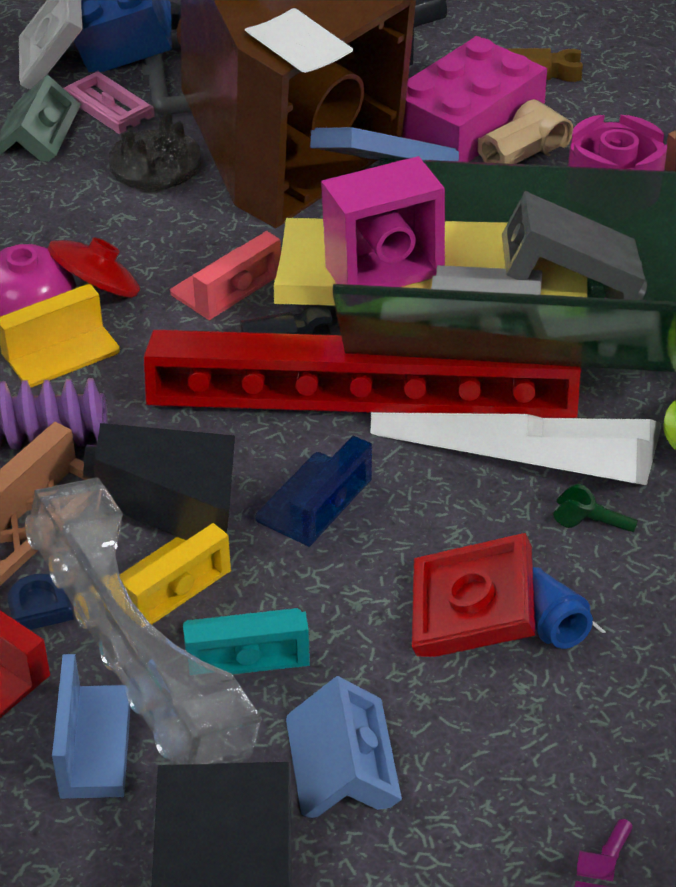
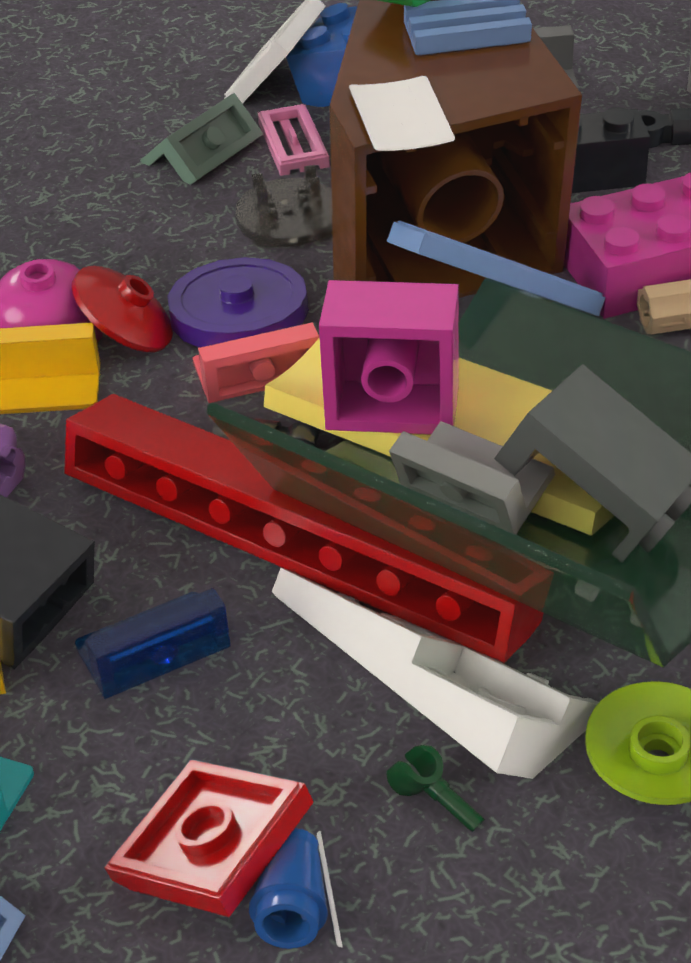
camera: 30 degrees right, 0 degrees up
(174, 239) = (236, 300): none -> dark purple wheel

